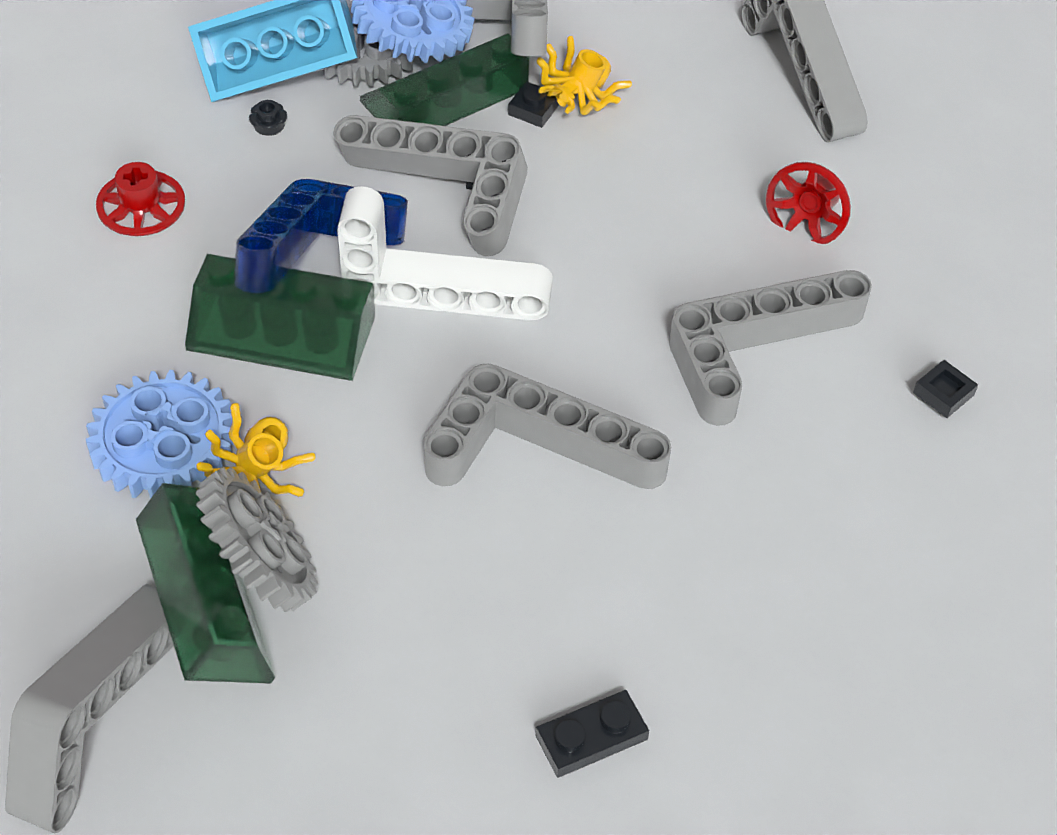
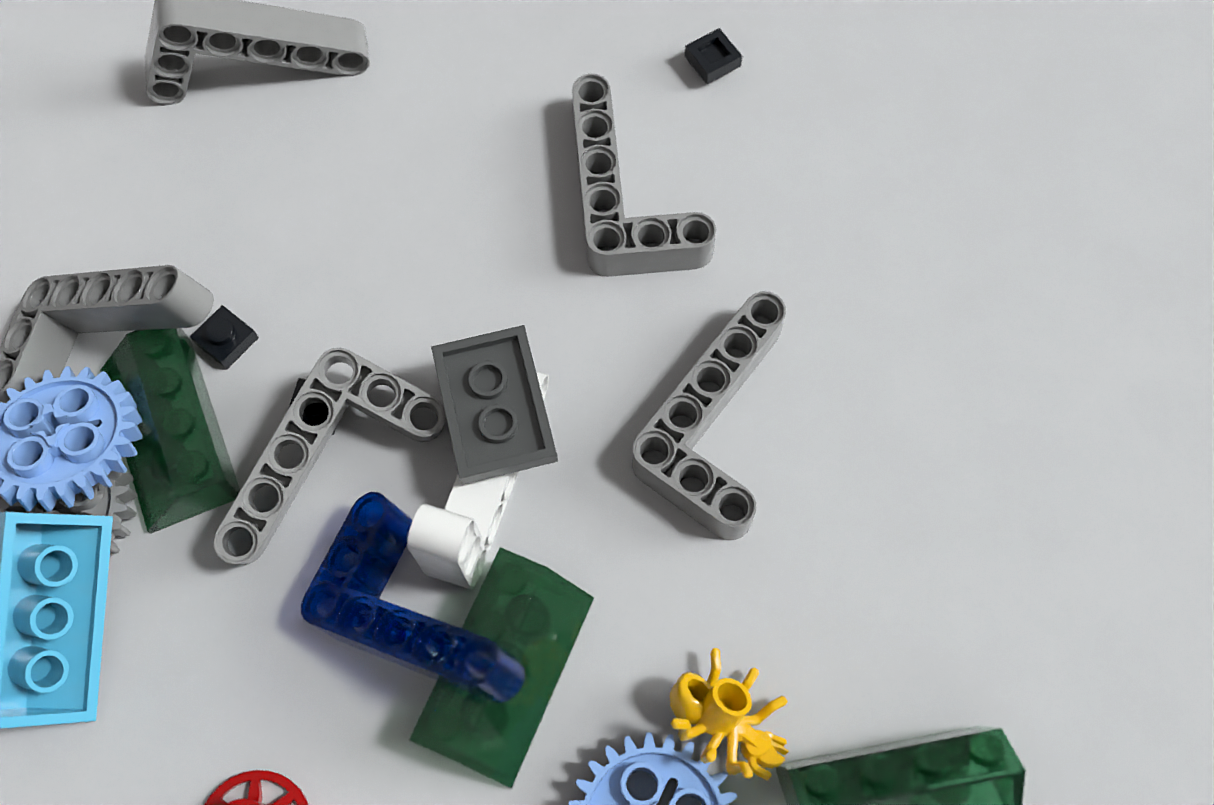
camera: 75 degrees left, 15 degrees up
(256, 539) = (860, 718): light grey gear -> none
(268, 117) = (161, 656): black plate -> none
(499, 257) = (493, 405): none -> dark grey plate
(585, 76) = (208, 266): yellow animal -> none
(592, 733) = (1055, 435): black plate -> none
(810, 199) = (461, 98): red wheel -> none

